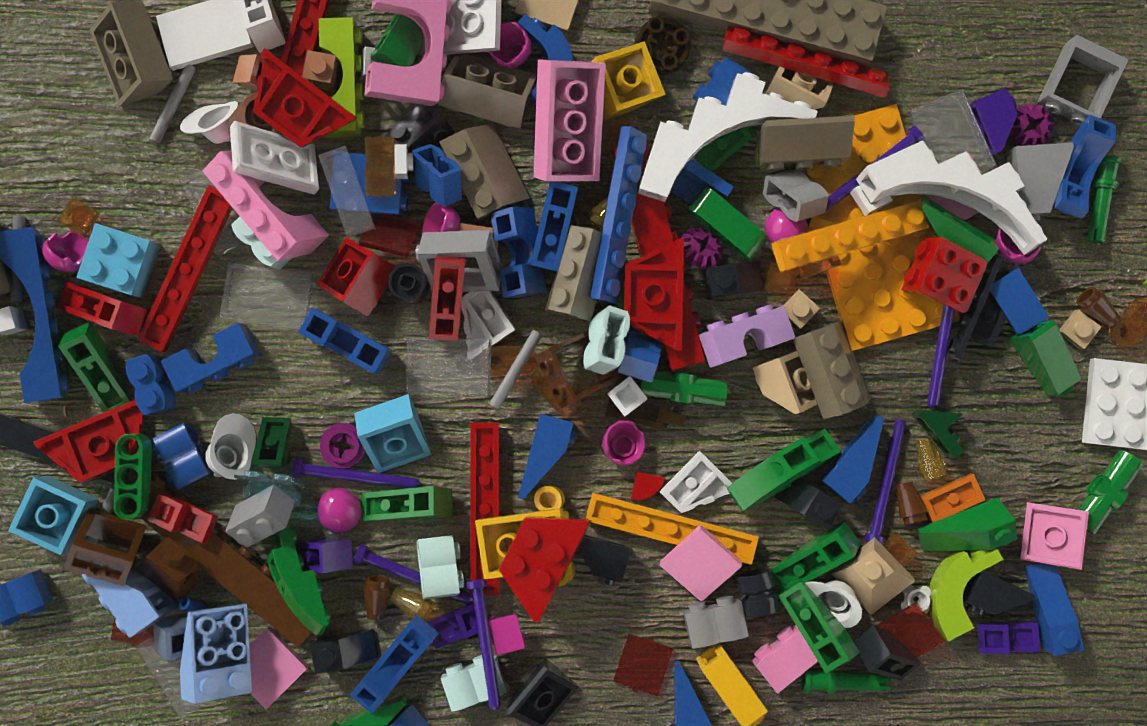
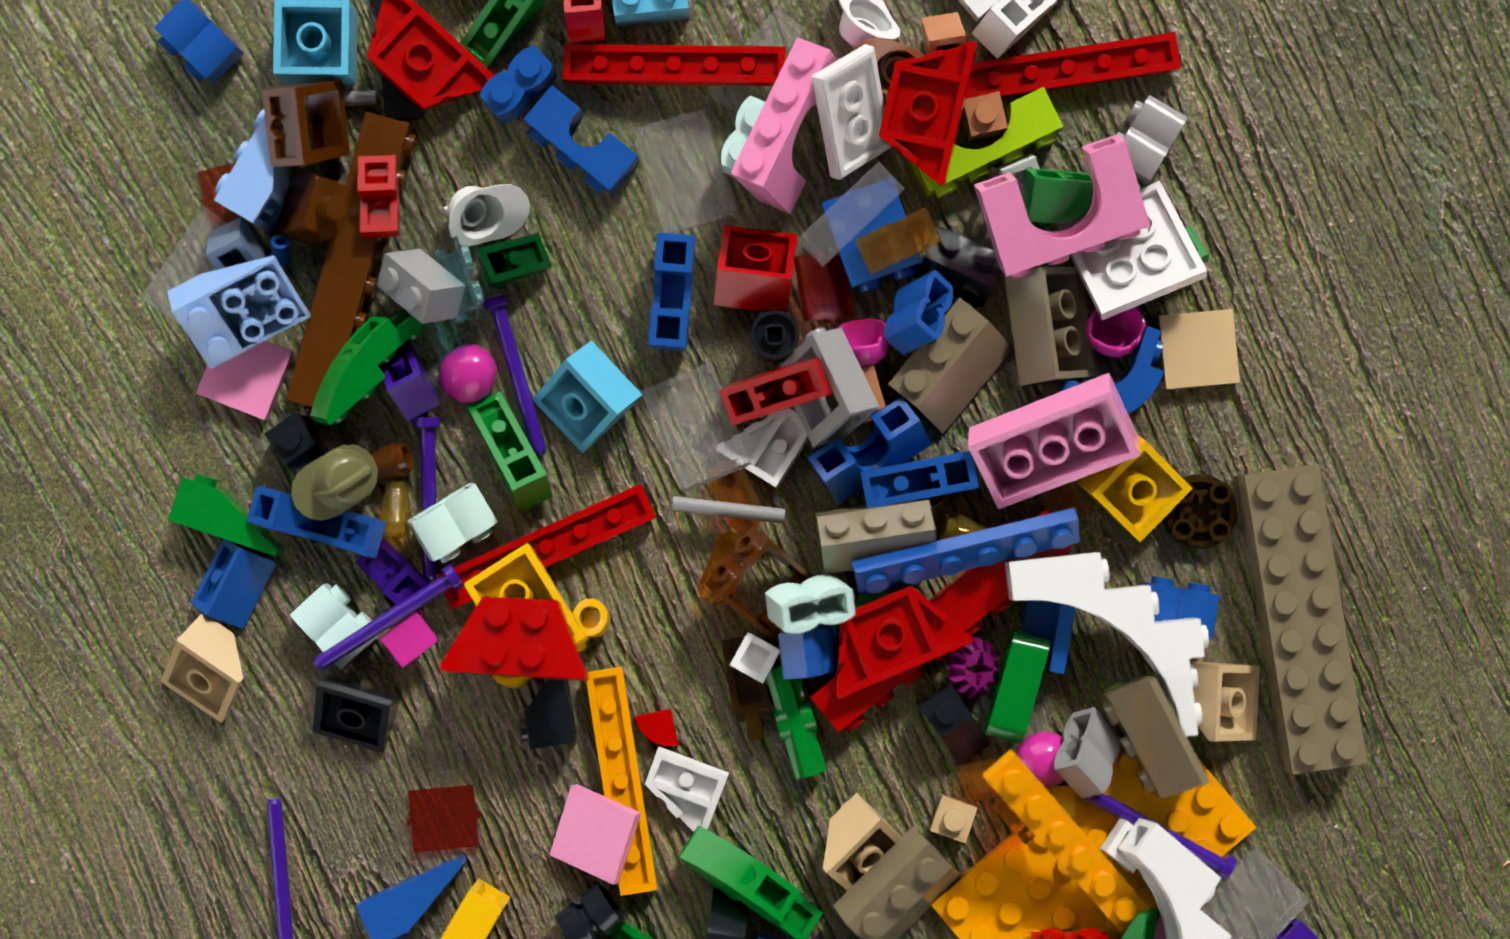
camera: 65 degrees right, 0 degrees up
(123, 487) = (384, 112): green beam -> none
(182, 455) = (450, 160): blue brick -> none
(332, 453) = (532, 333): magenta gear -> none
(372, 639) = (334, 482): none -> olive piece
(403, 161) = (916, 266): white plate -> none
(548, 446) = (653, 589): blue slope -> none
(623, 443) = (697, 678): dark pink hair -> none
(715, 622) = (532, 883): light grey brick -> none
(723, 148) = (1104, 639): green hinge -> none
(726, 342) = (871, 747): lavender arch -> none
(807, 62) = (1257, 695): red plate -> none

